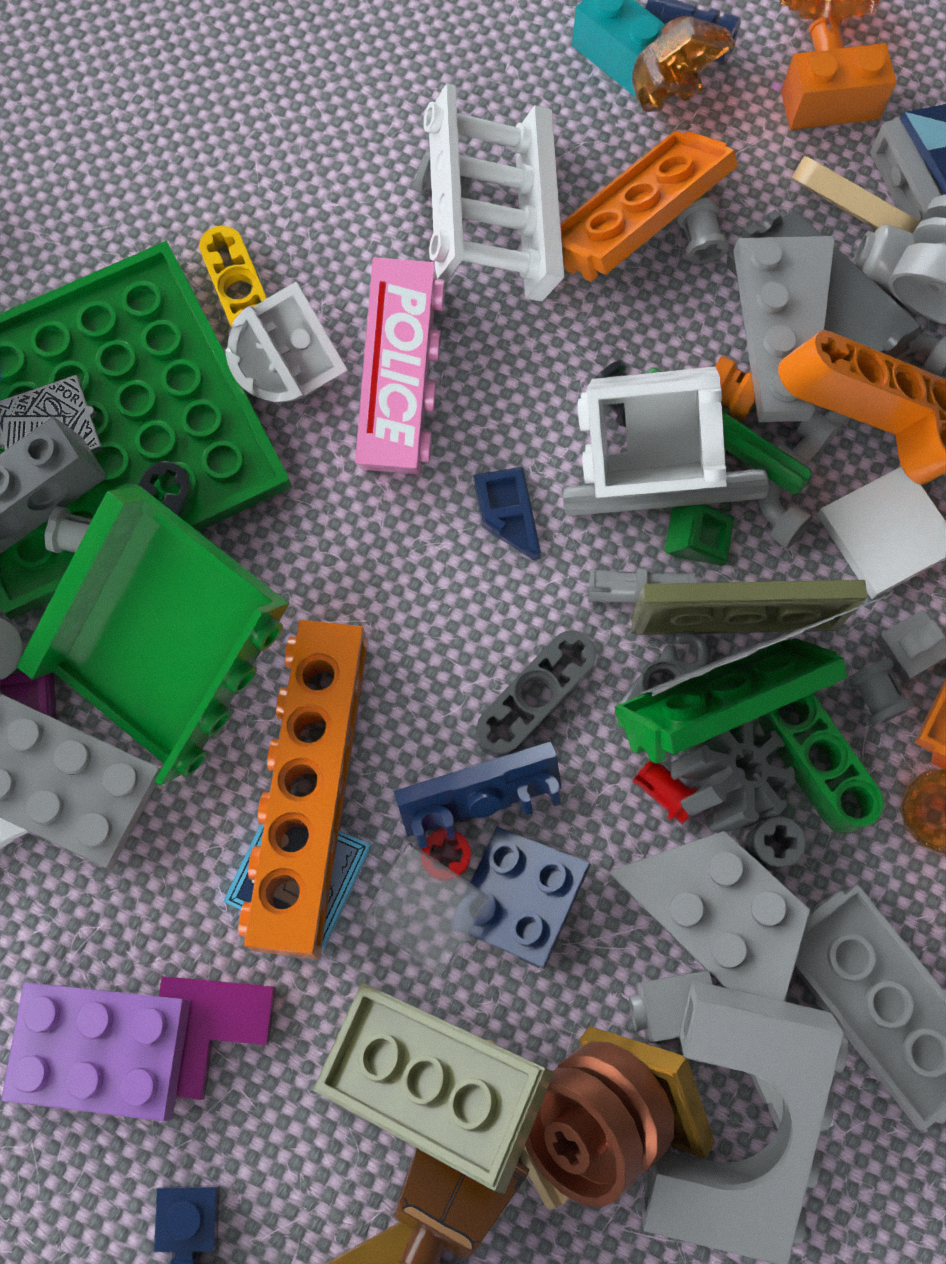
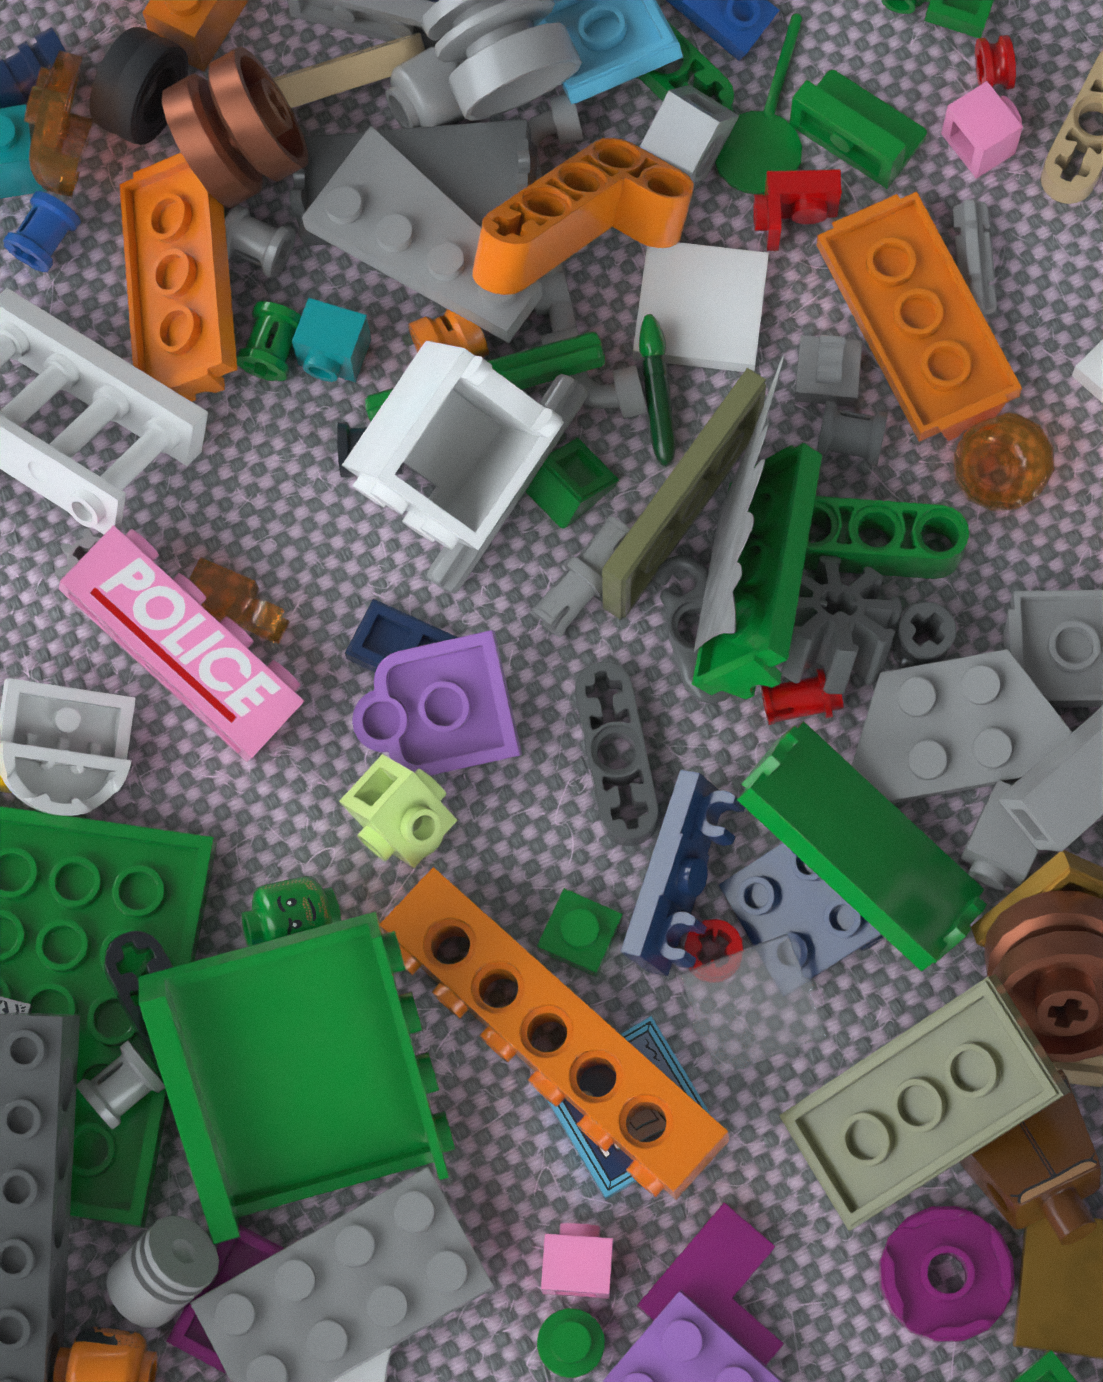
camera: 50 degrees left, 0 degrees up
(107, 948) = (570, 1343): none -> green plate
(162, 914) = (577, 1262): none -> bright pink plate
(272, 560) = (288, 909): none -> green head
(294, 1193) = (986, 1268): none -> magenta tile
(387, 580) = (399, 811): none -> yellowish green brick
(395, 756) = (579, 932): none -> green plate
(455, 384) = (234, 597): none -> clear orange plate
(481, 558) = (440, 706): none -> medium lavender plate
(587, 907) = (862, 846): none -> green brick
(607, 109) = (41, 231): none -> blue bush
(644, 285) = (263, 361): none -> green bush
(673, 320) = (331, 341): none -> teal plate
(745, 89) = (131, 84): none -> black tyre
(762, 153) = (234, 127): none -> copper wheel
(809, 540) = (657, 390): none -> dark green piece

